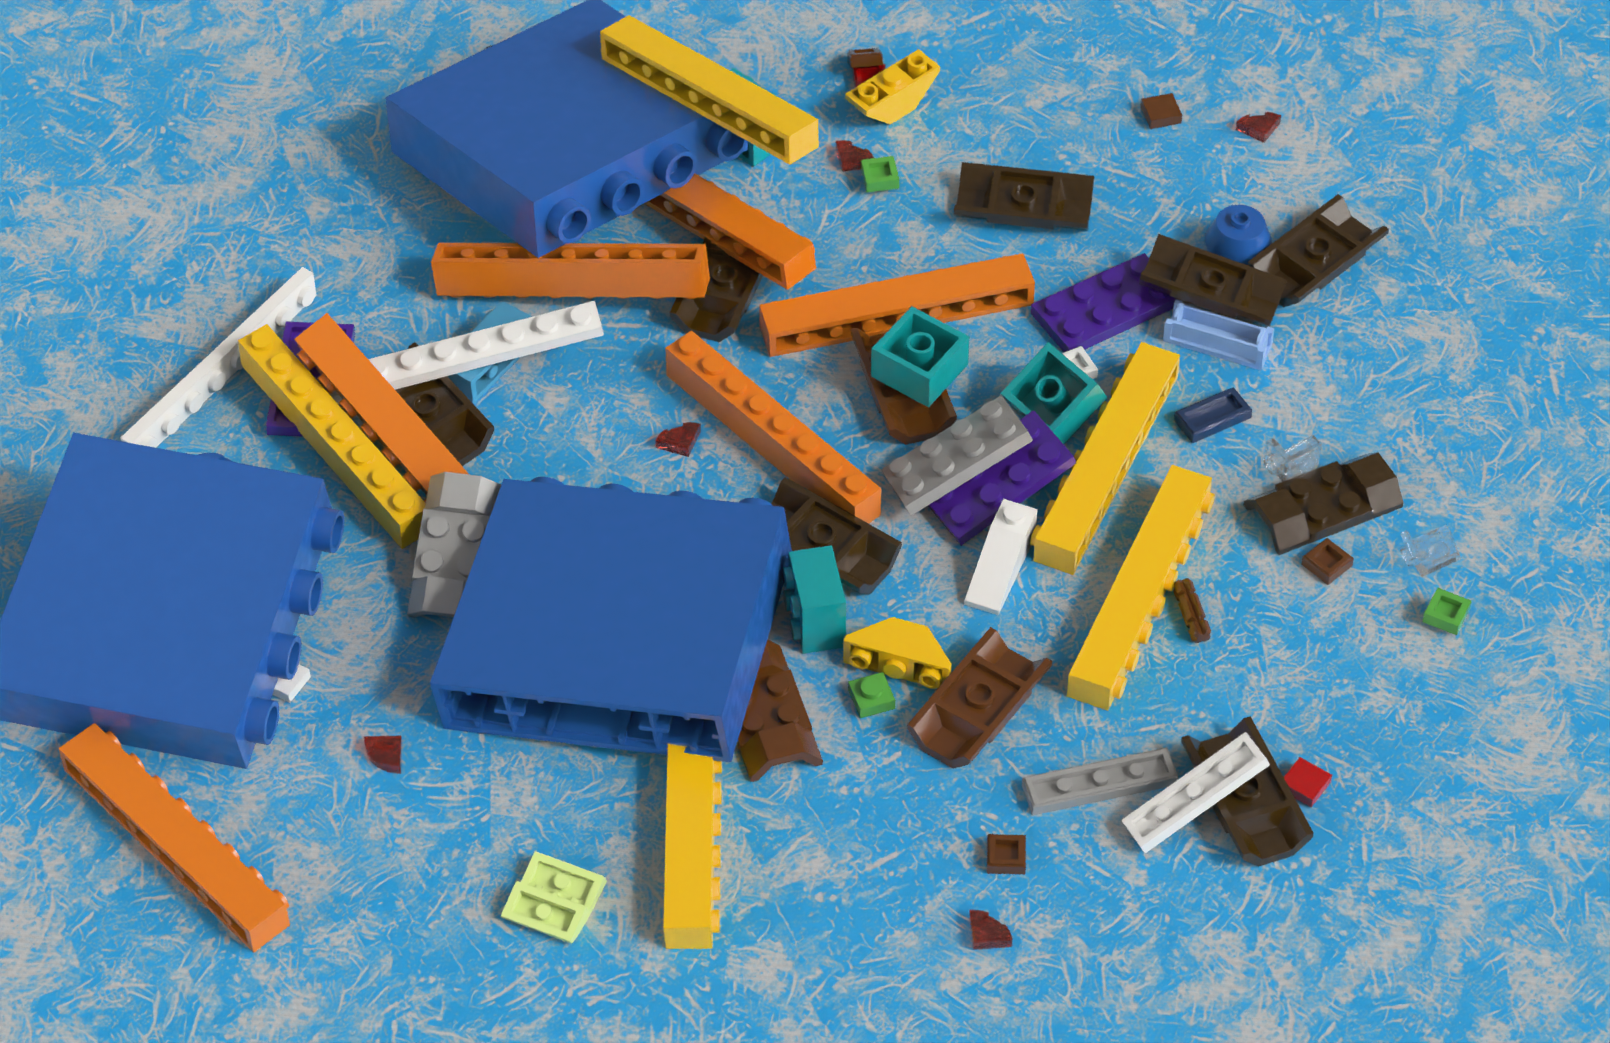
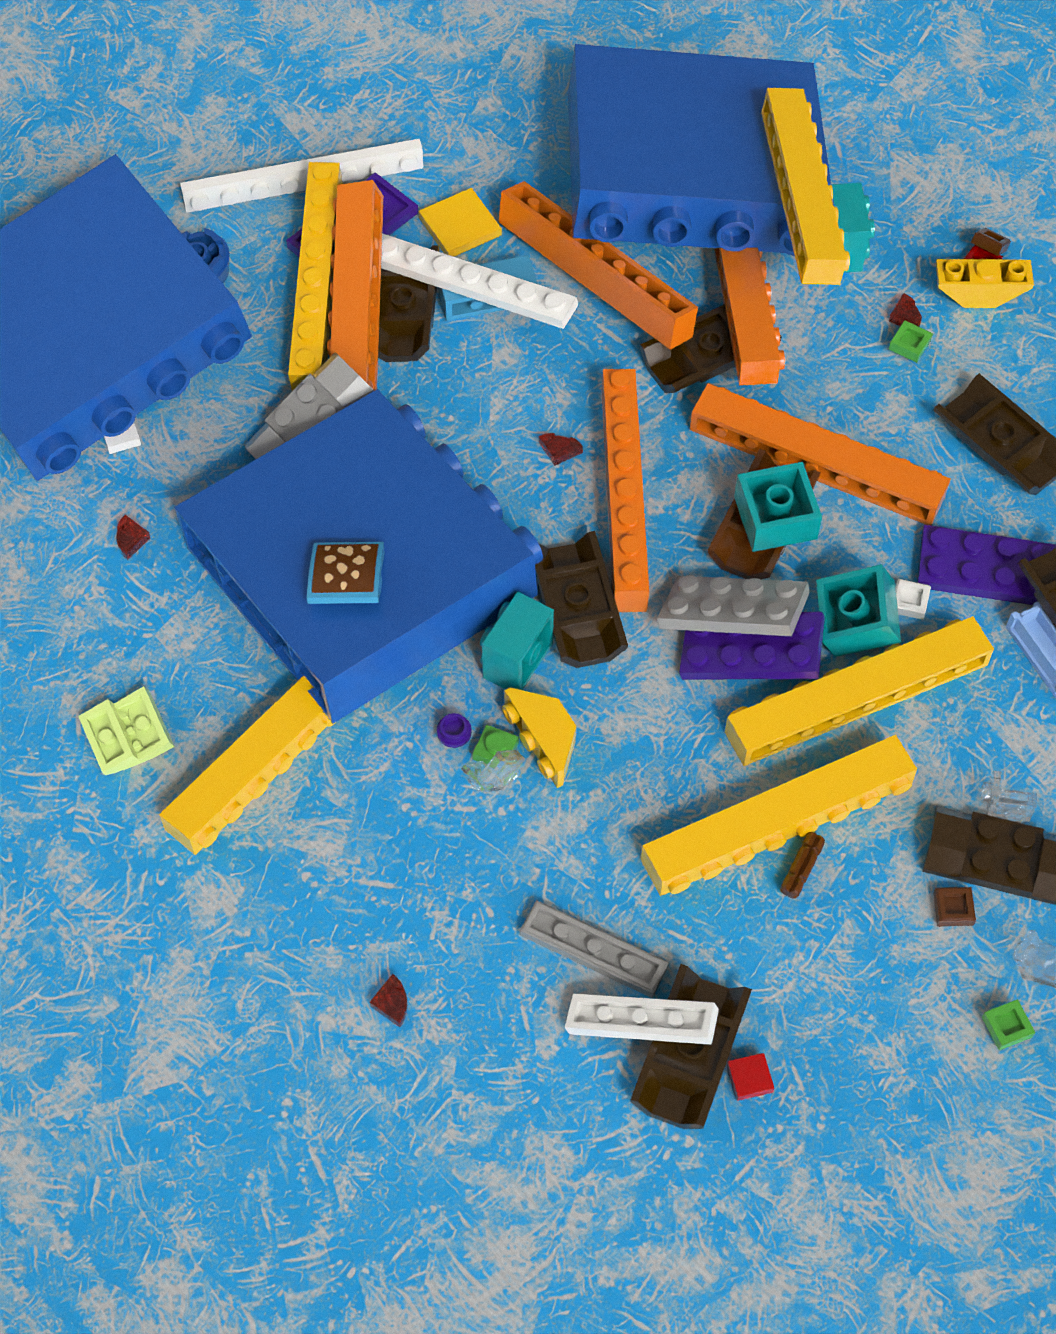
camera: 40 degrees right, 10 degrees up
(401, 317) = (460, 223): none -> yellow tile
(649, 622) = (345, 572): none -> slope
(775, 721) = (406, 715): reddish brown piece -> none
(825, 704) = (454, 730): none -> dark purple plate
(902, 702) = (497, 774): none -> clear bracket
(975, 701) = (564, 811): reddish brown piece -> none
(1001, 556) = (695, 711): white slope -> none
(1006, 854) = (466, 951): reddish brown tile -> none
(1212, 415) = (982, 716): dark blue tile -> none

